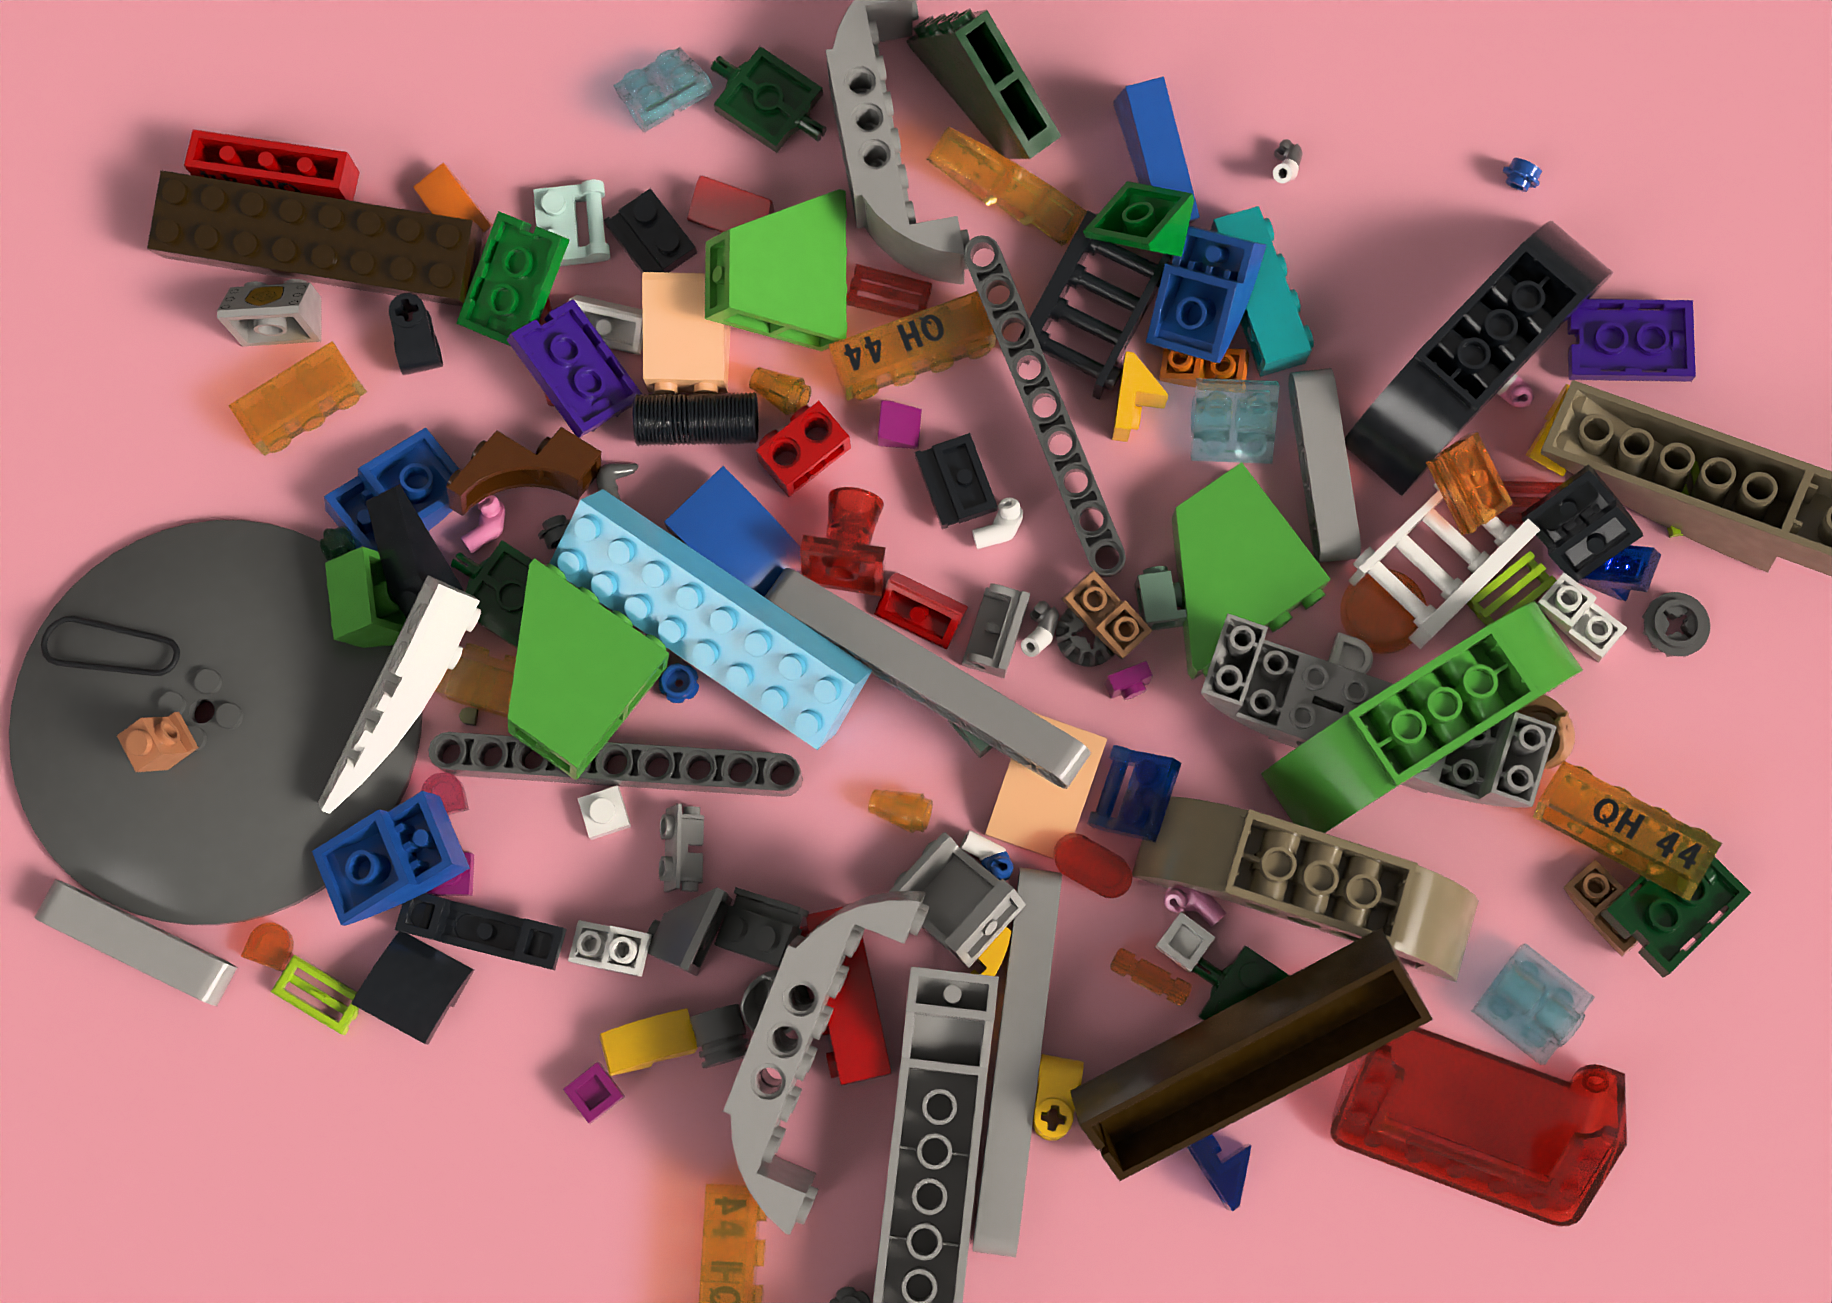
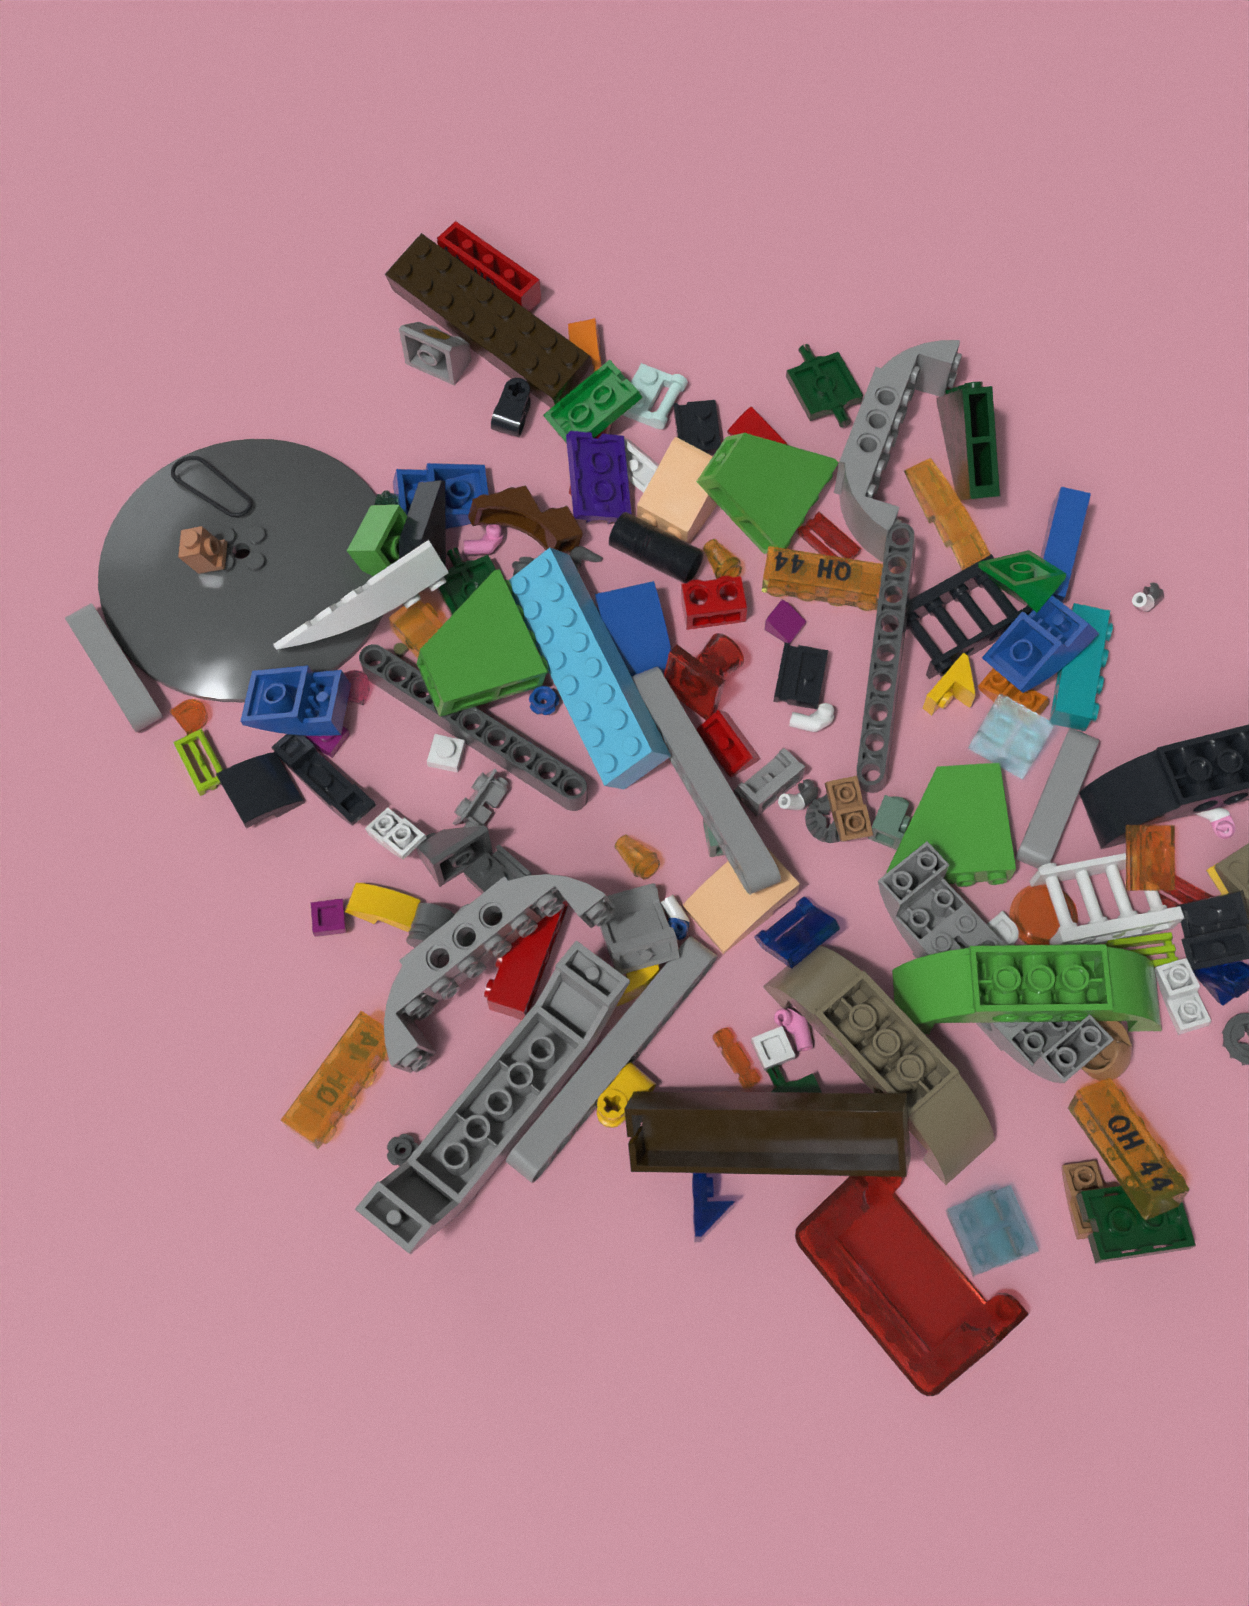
camera: 30 degrees right, 10 degrees down
(298, 399) = (418, 408): clear yellow brick -> none
(662, 87) = (767, 343): clear light blue plate -> none
(1092, 865) = (740, 963): clear red tile -> none
(1129, 681) = (838, 860): magenta plate -> none

